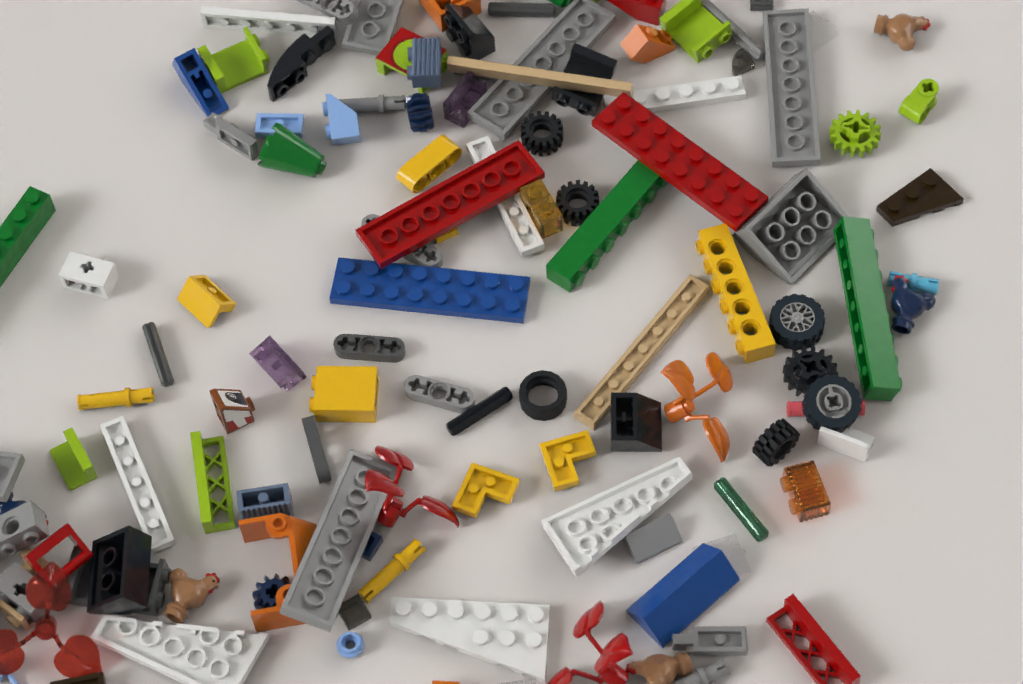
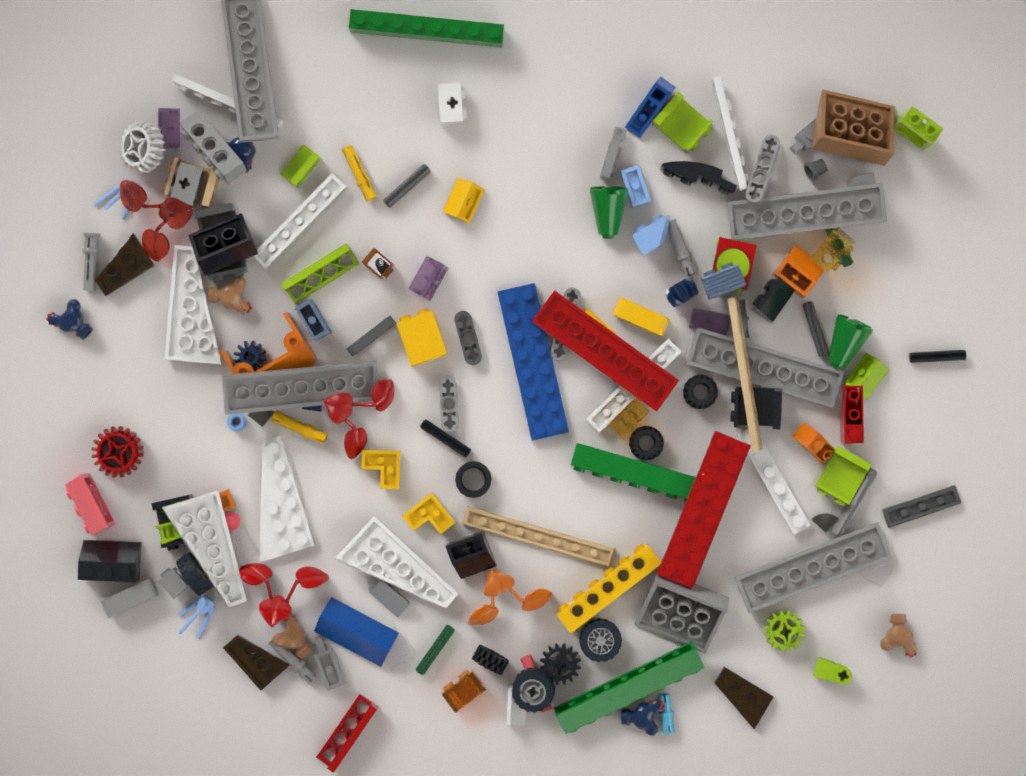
camera: 65 degrees right, 30 degrees up
(53, 540) = (221, 189): red tile -> none

